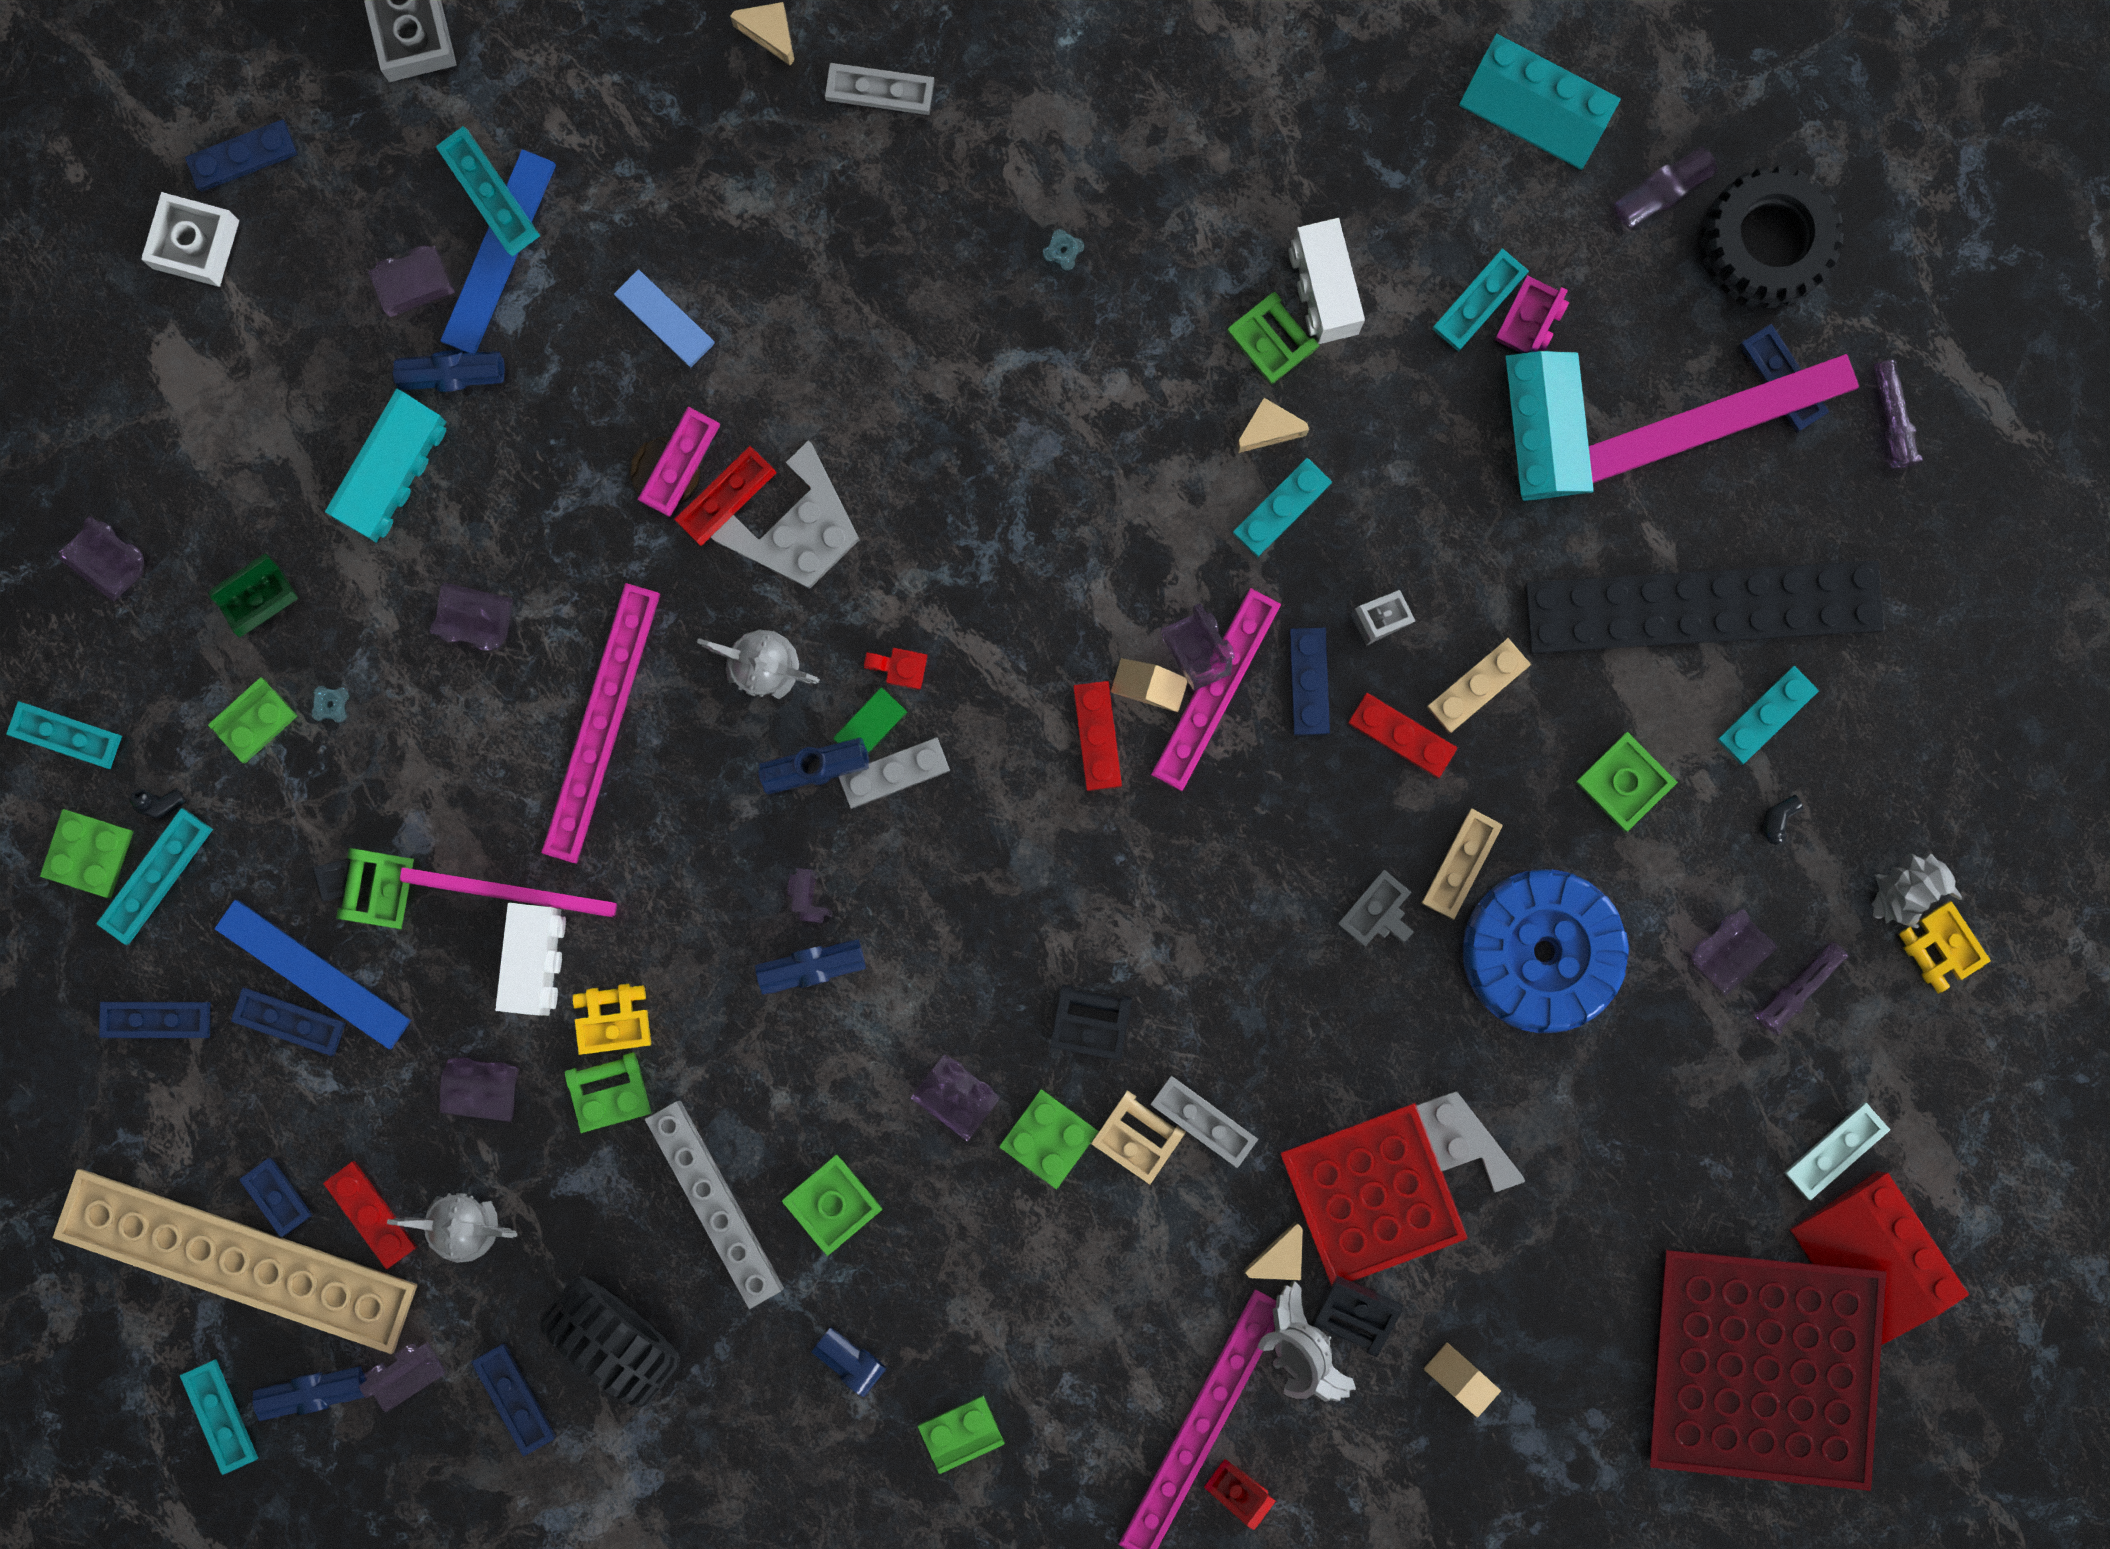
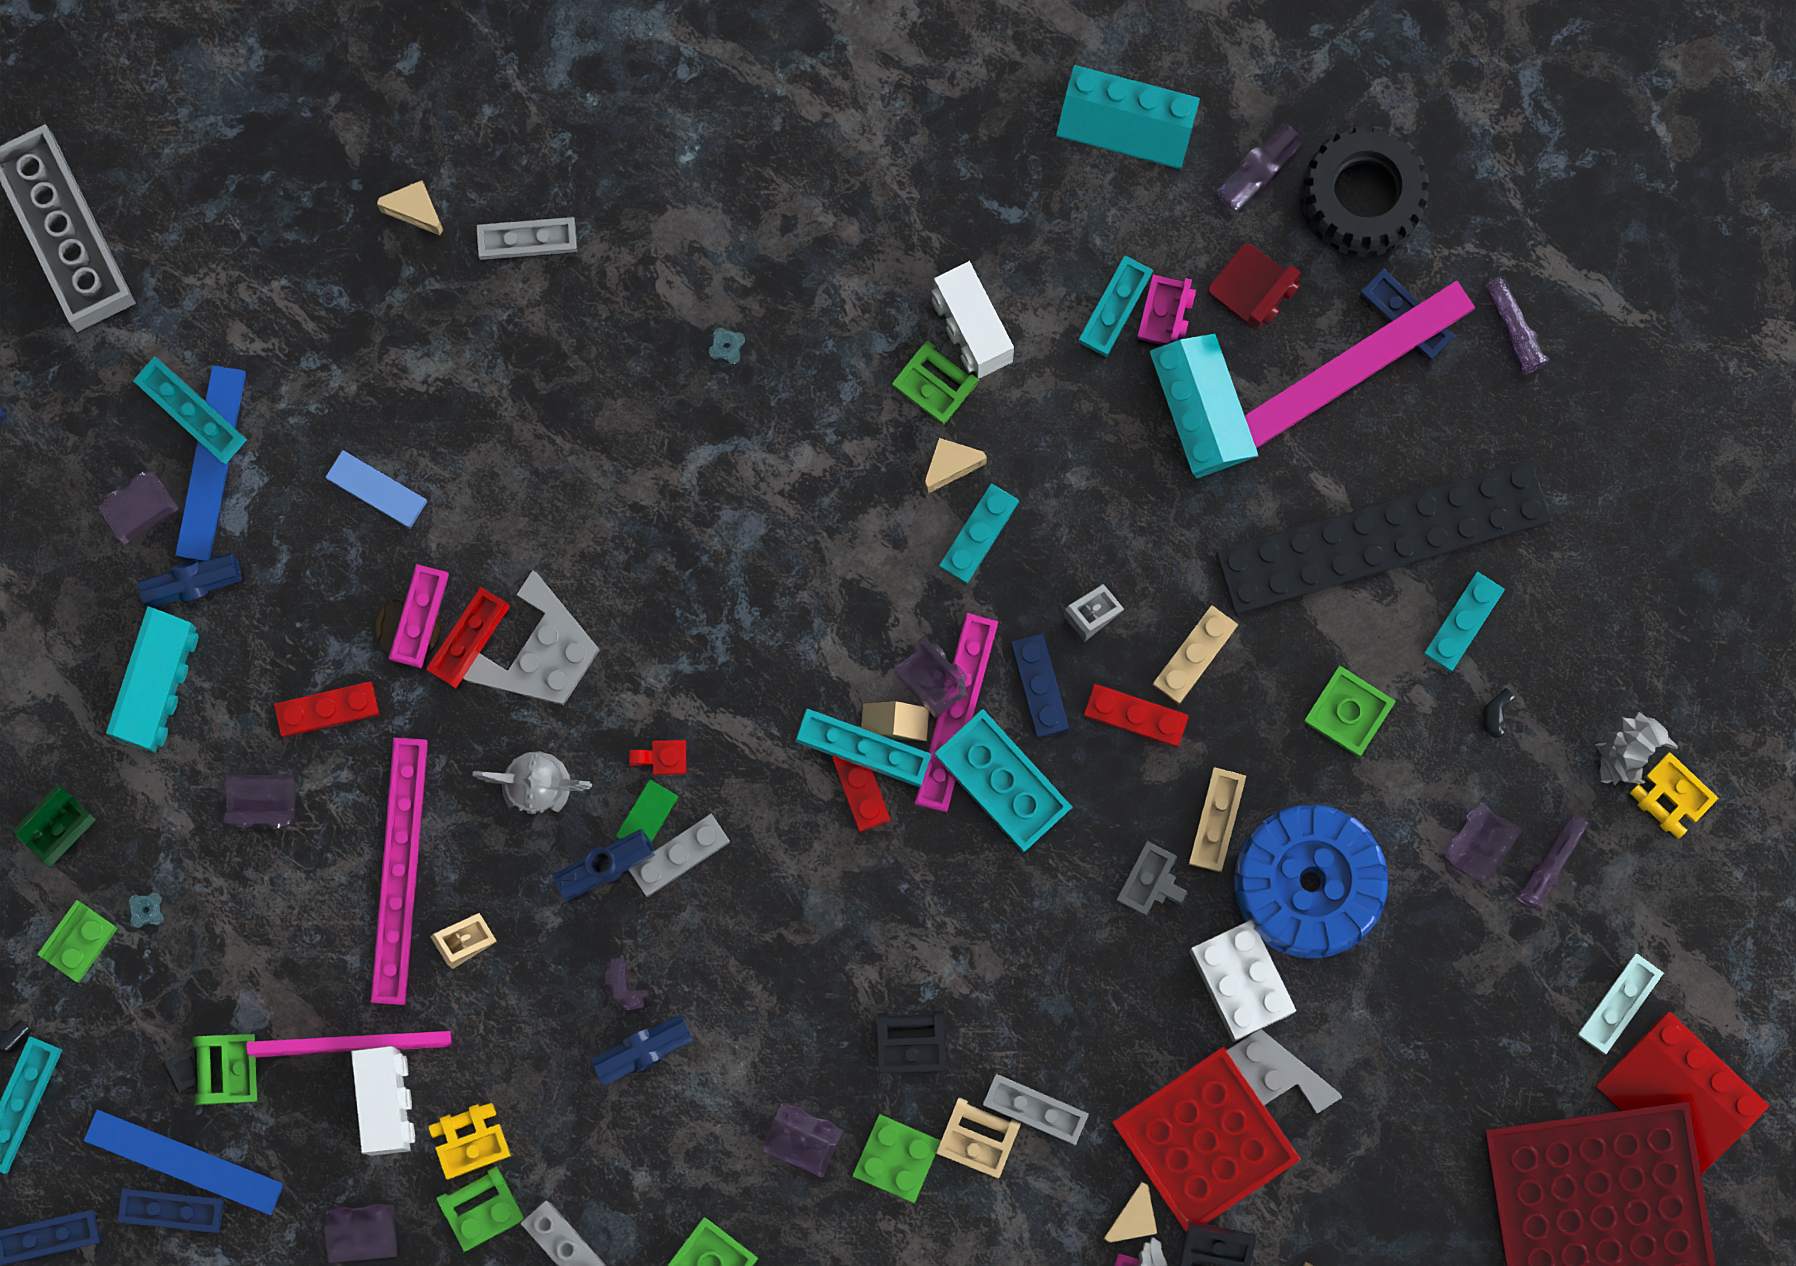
camera: 10 degrees left, 5 degrees down
(562, 537) = (326, 709): none -> red plate
(650, 811) = (463, 940): none -> tan slope
(1110, 705) = (863, 747): none -> teal plate
(1248, 772) = (1002, 780): none -> teal plate
(1449, 1038) = (1242, 980): none -> white brick
(1631, 312) = (1254, 286): none -> dark red bracket

